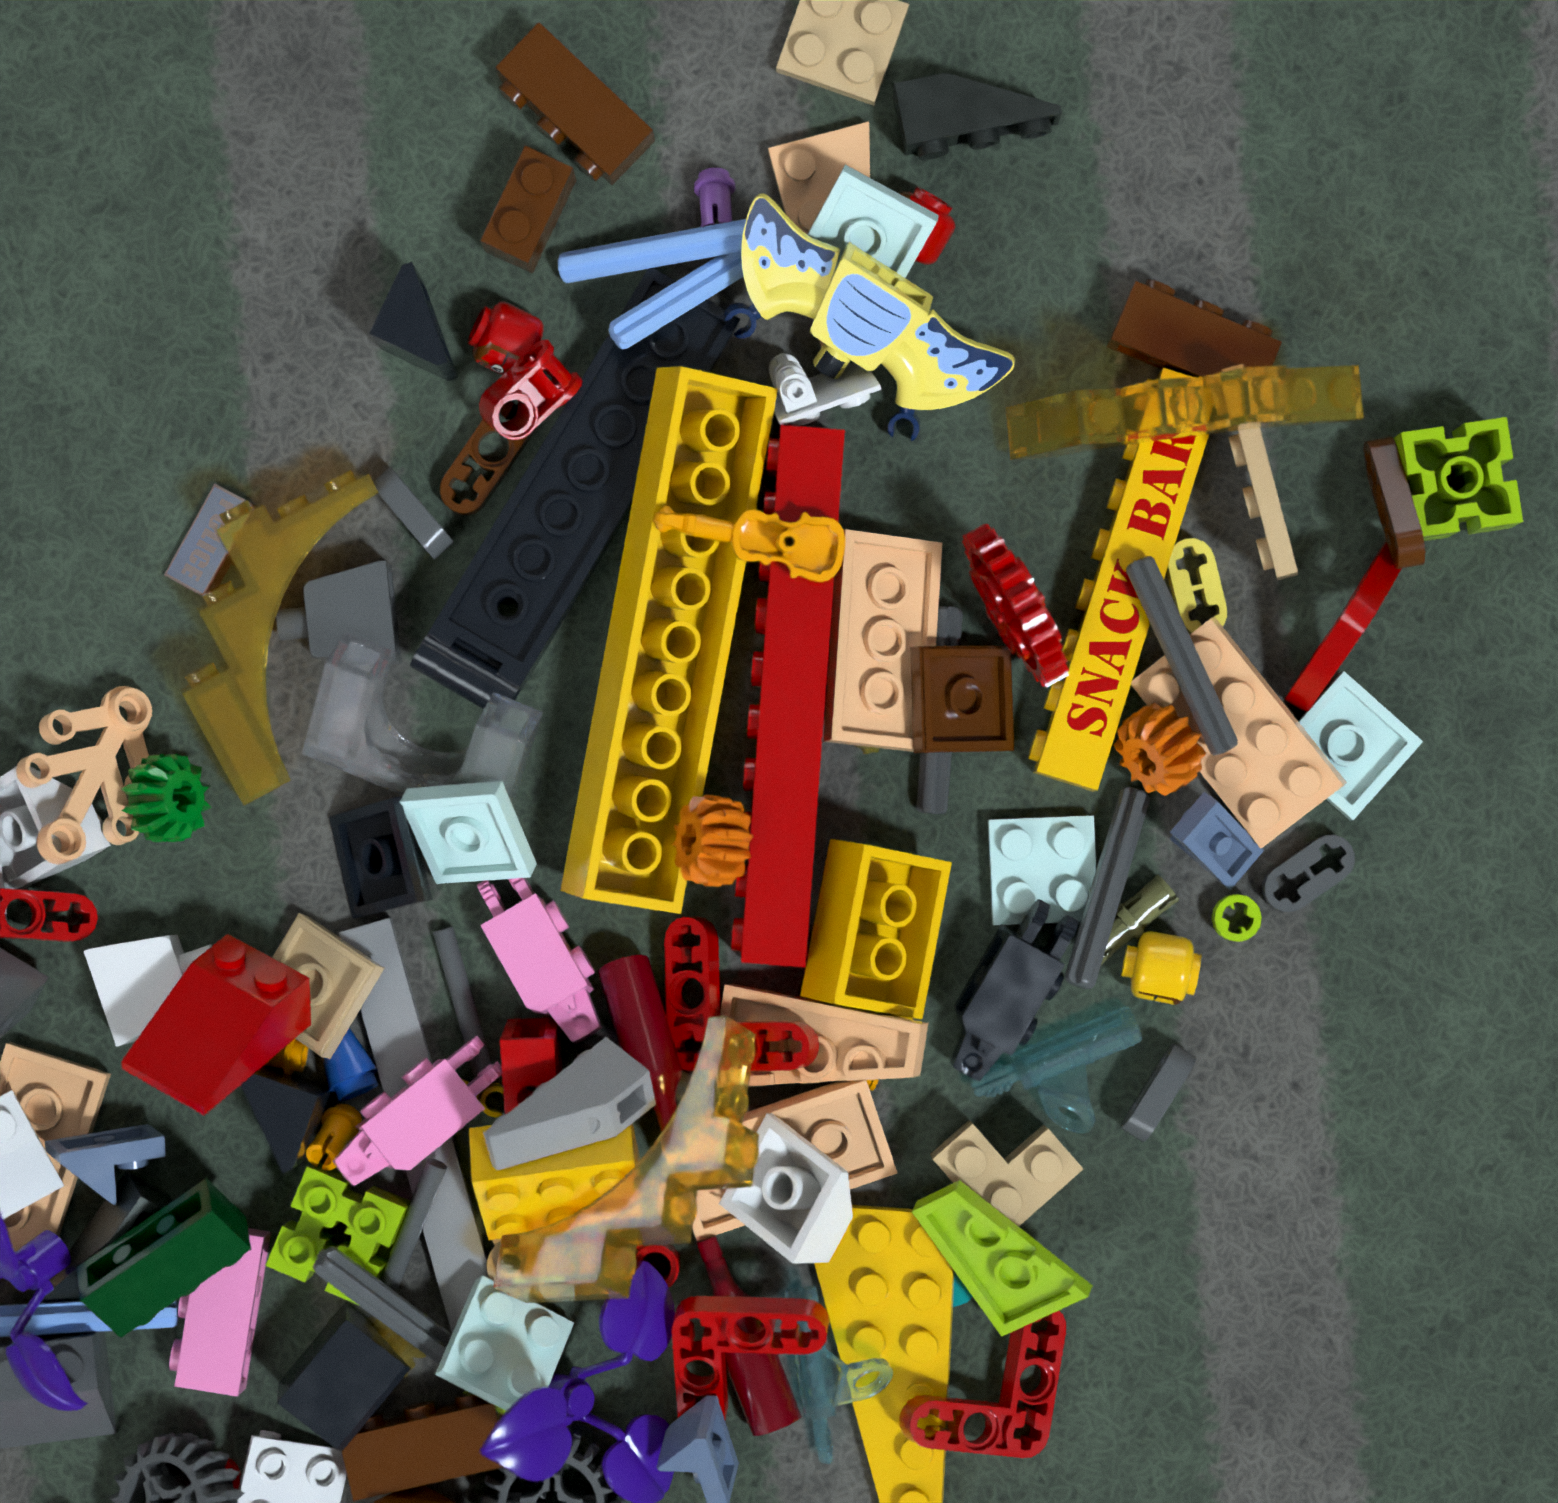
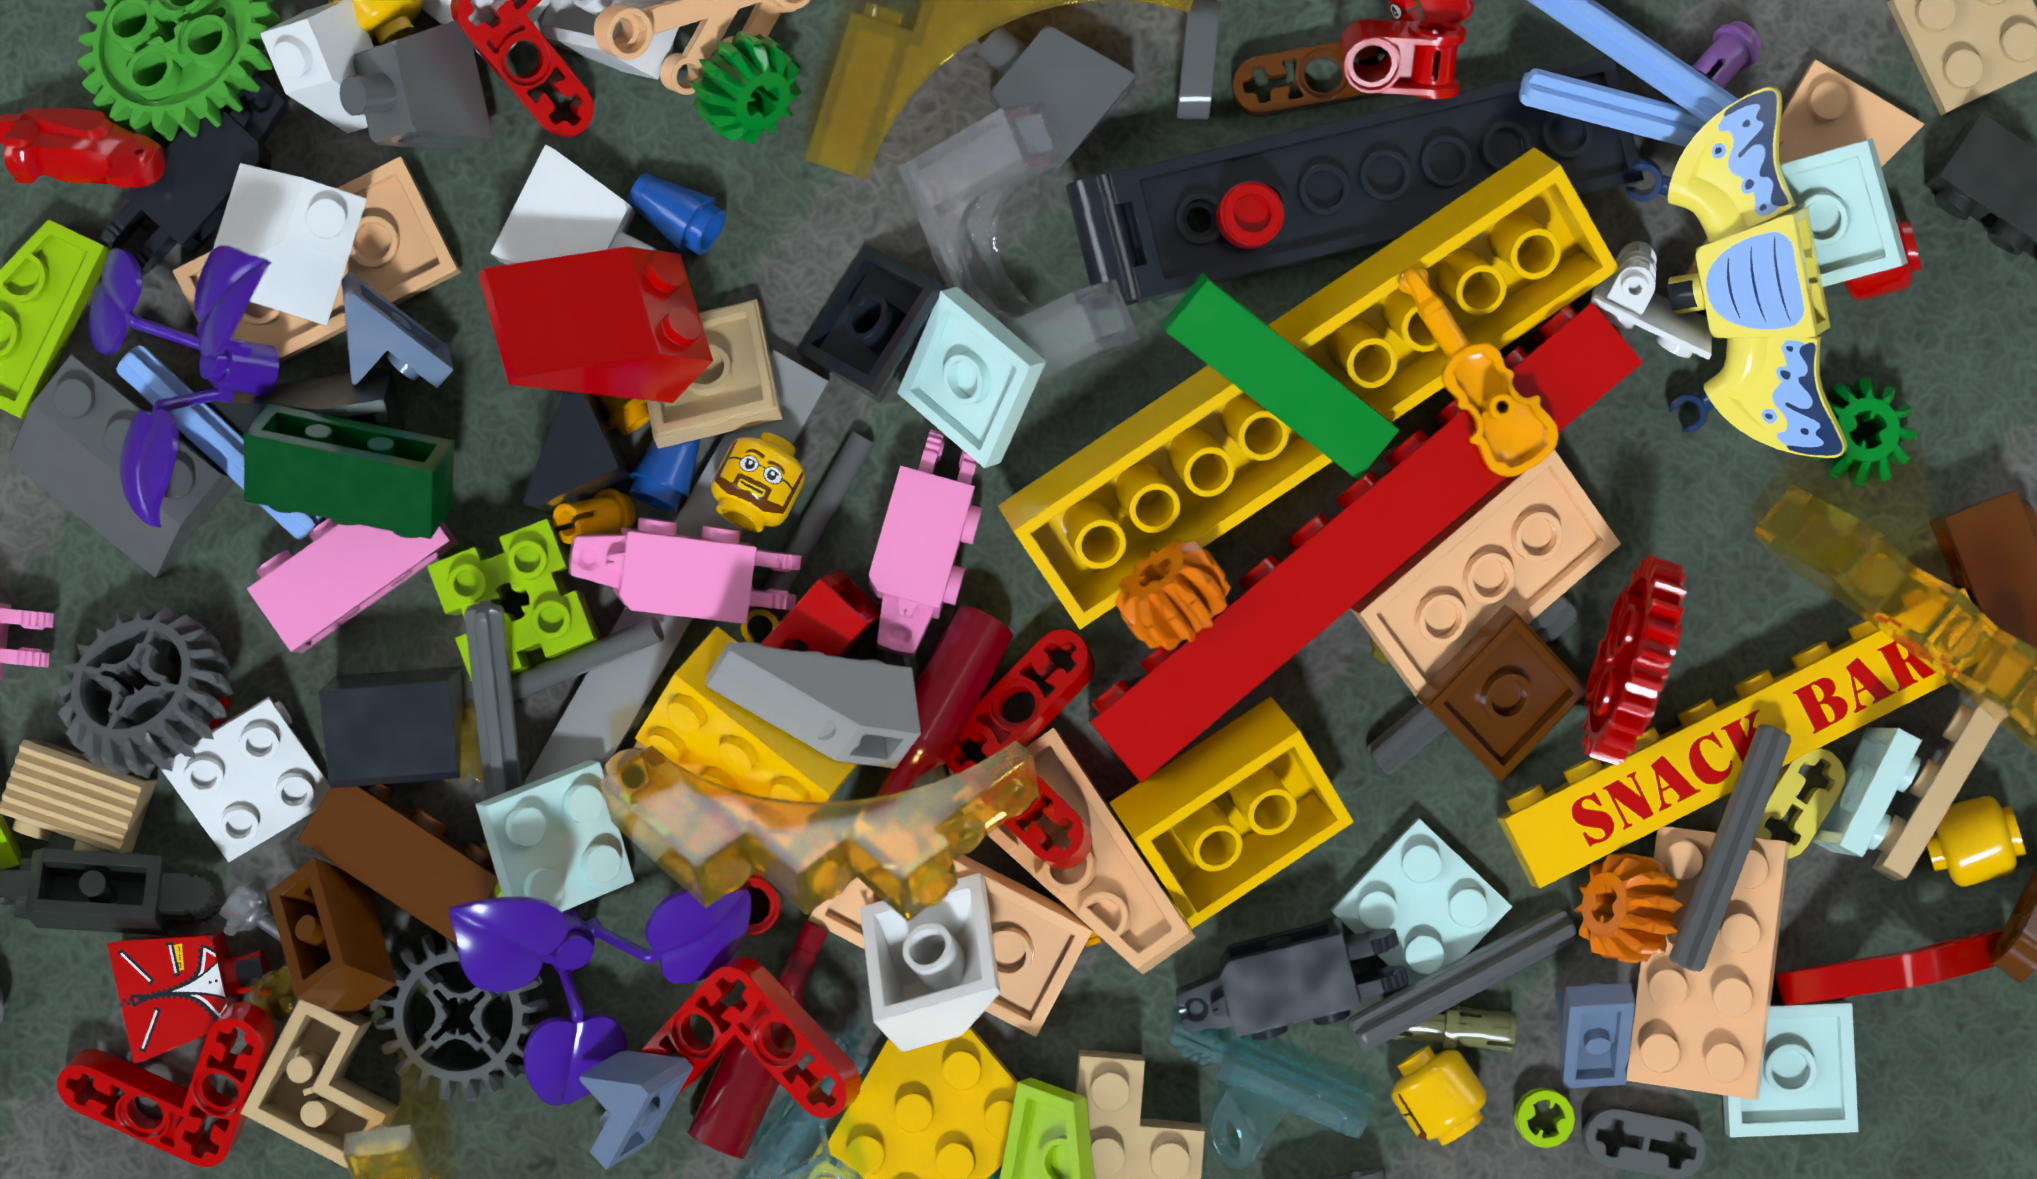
camera: 40 degrees right, 0 degrees up
(204, 909) = (678, 213): none -> blue cone
(407, 1019) = (758, 482): none -> yellow head
(533, 574) = (1250, 215): none -> red tile
(644, 653) = (1279, 376): none -> green tile
(1031, 331) = (1881, 443): none -> green gear
(1221, 522) = (1877, 769): none -> light aqua plate
(1319, 505) = (1976, 841): none -> yellow head

